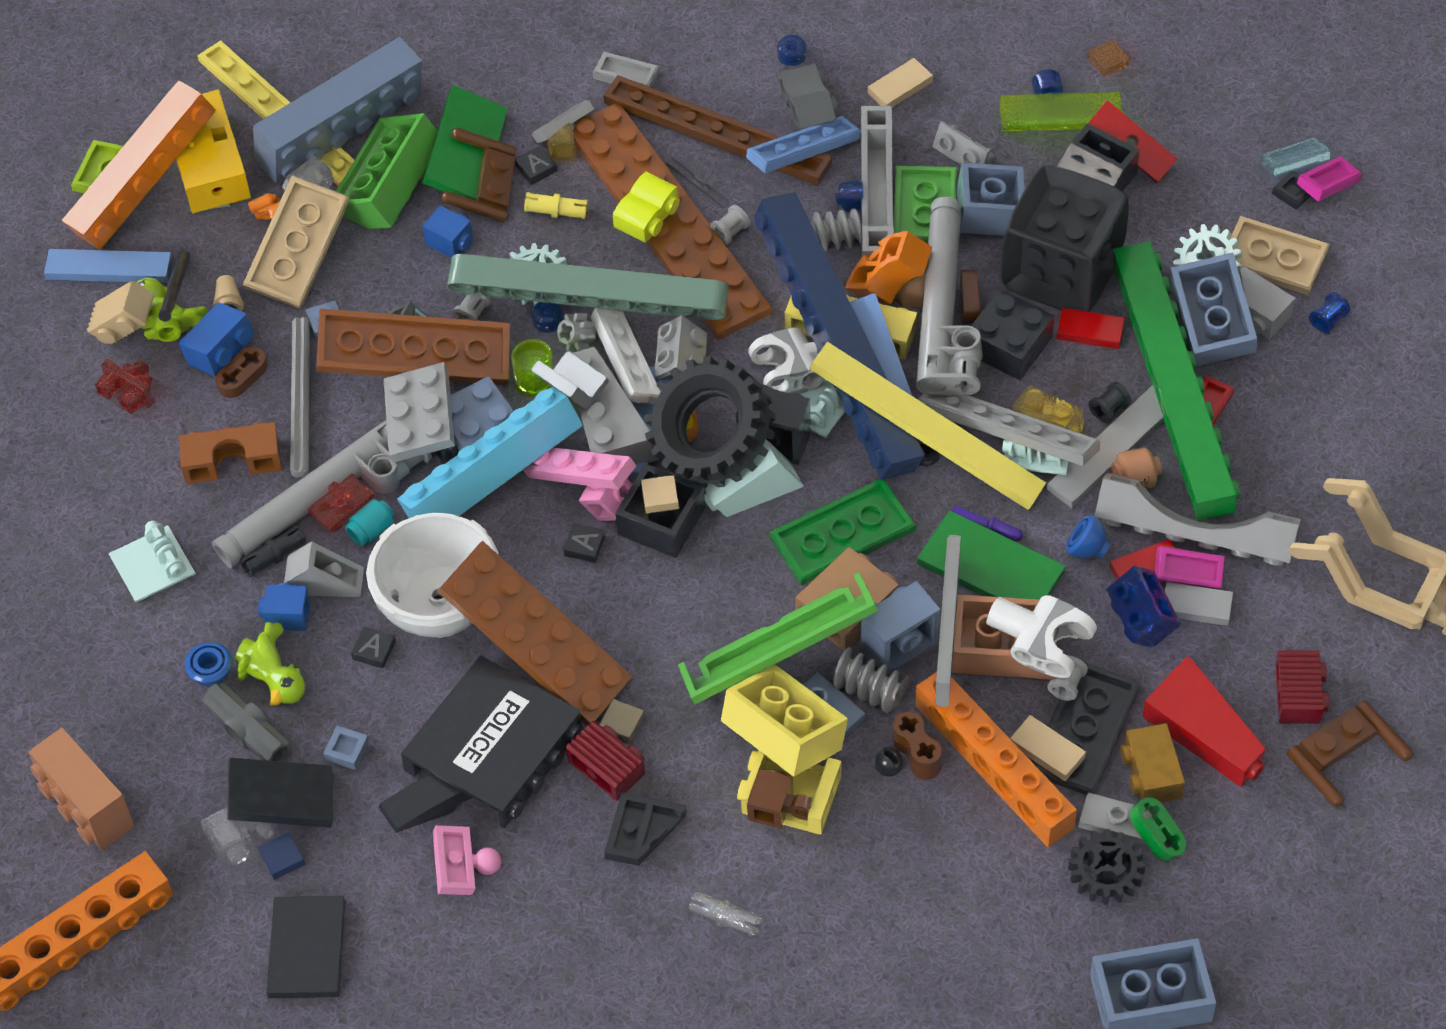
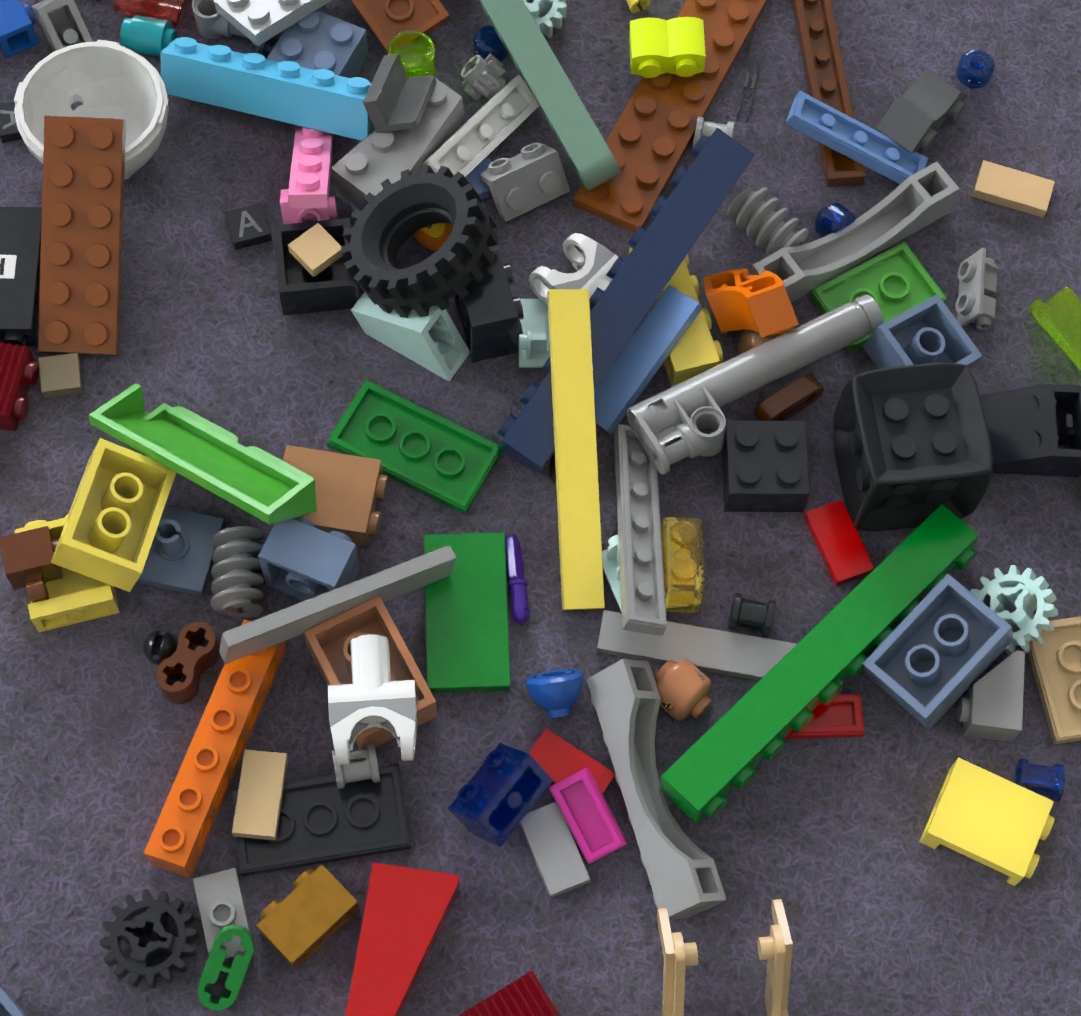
camera: 50 degrees right, 10 degrees up
(1337, 354) = (989, 820): none -> light yellow panel

